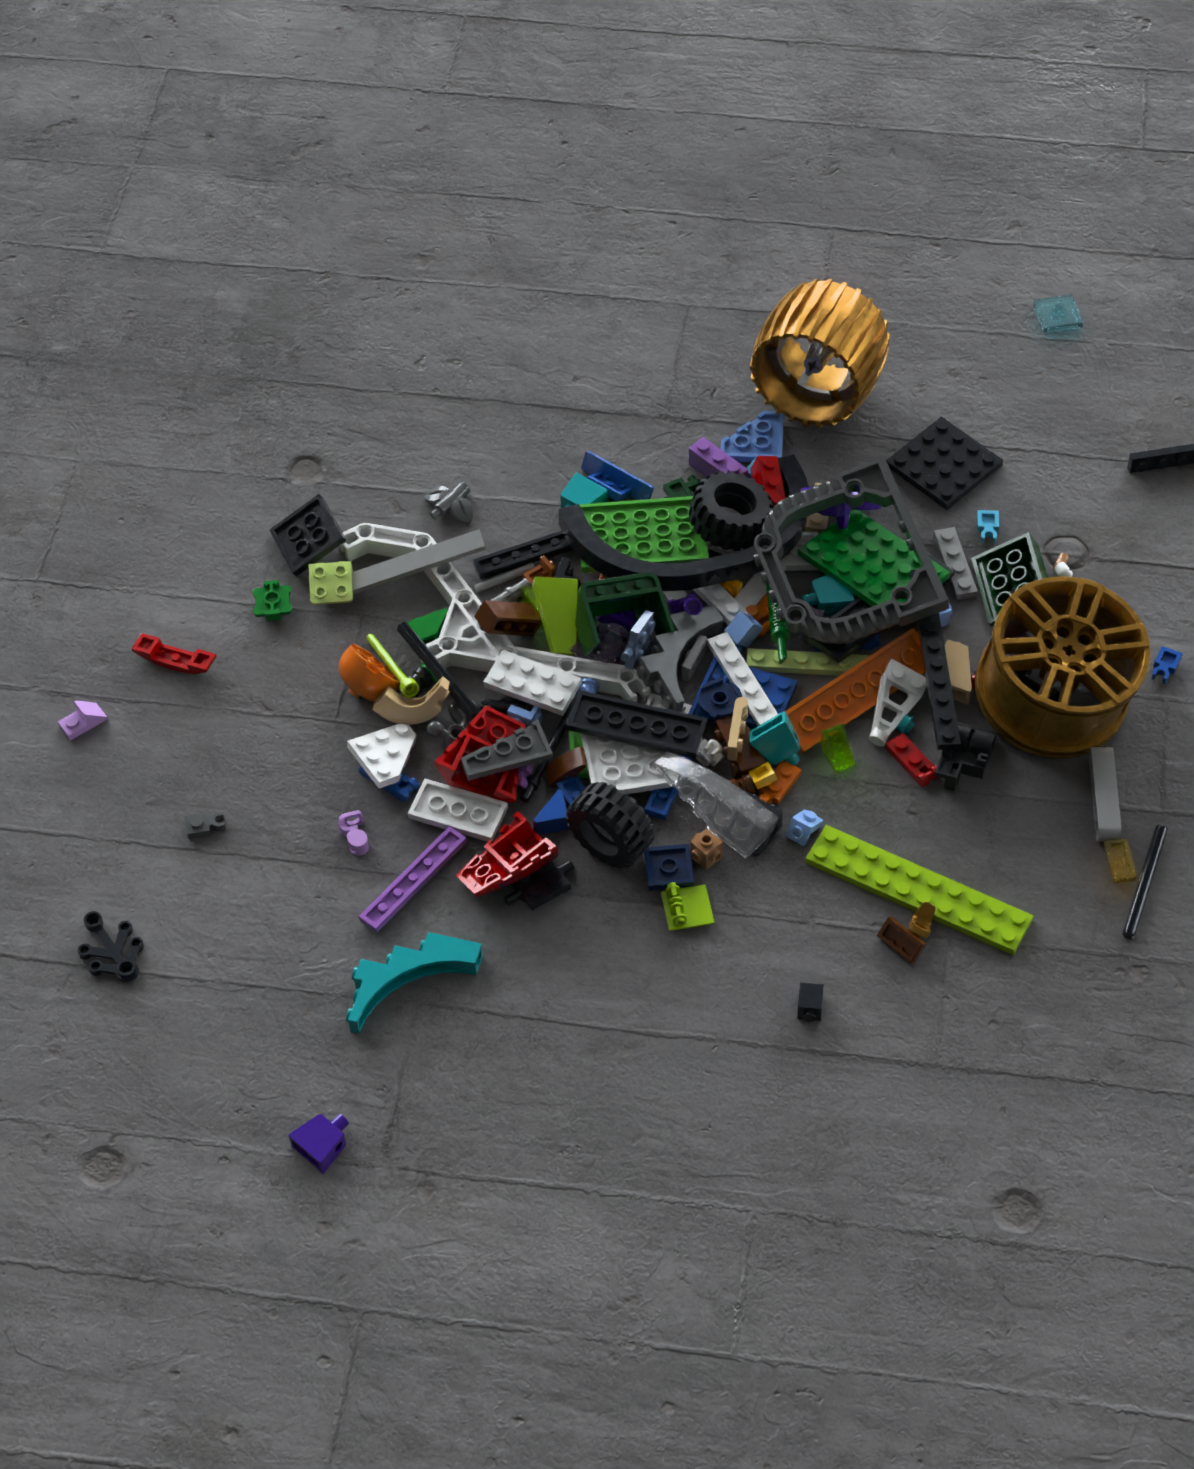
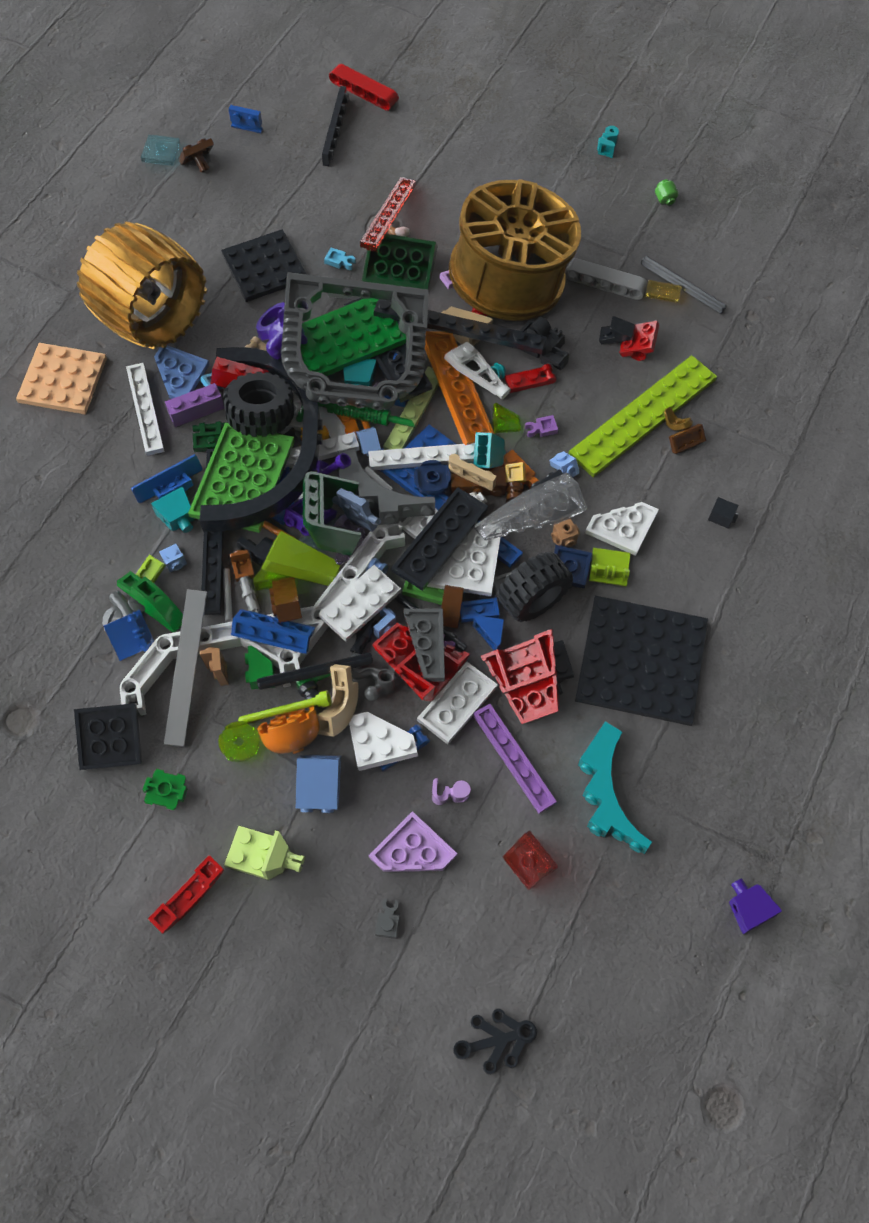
camera: 75 degrees left, 10 degrees up
(83, 719) = (222, 1004): lavender slope -> none
(234, 699) = (261, 854): none -> yellowish green plate
(283, 820) = (412, 848): none -> lavender plate
(305, 924) = (529, 860): none -> clear red bracket
(323, 716) = (318, 782): none -> medium blue slope
(330, 582) = (171, 732): yellowish green bracket -> none
(338, 632) = (248, 748): none -> clear neon green plate
(414, 591) = (216, 663): none -> medium nougat bracket
(423, 511) = (129, 635): none -> blue hinge
(462, 617) = (271, 632): none -> blue fence
(469, 508) = (154, 600): none -> green slope
(497, 503) = (151, 568): none -> lime plate
(527, 518) = (173, 558): none -> light blue bracket
(581, 970) = (642, 660): none -> black plate
(695, 429) = (145, 409): none -> white plate
(702, 350) = (61, 378): none -> light nougat plate
(746, 906) = (623, 526): none -> white plate
(847, 791) = (544, 426): none -> medium lavender plate
(1020, 851) = (643, 342): none -> red plate
(1022, 822) = (618, 331): none -> black slope
(1062, 343) = (197, 153): none -> reddish brown plate
(1067, 540) = (387, 214): none -> clear red plate
(1144, 367) = (245, 119): none -> blue plate

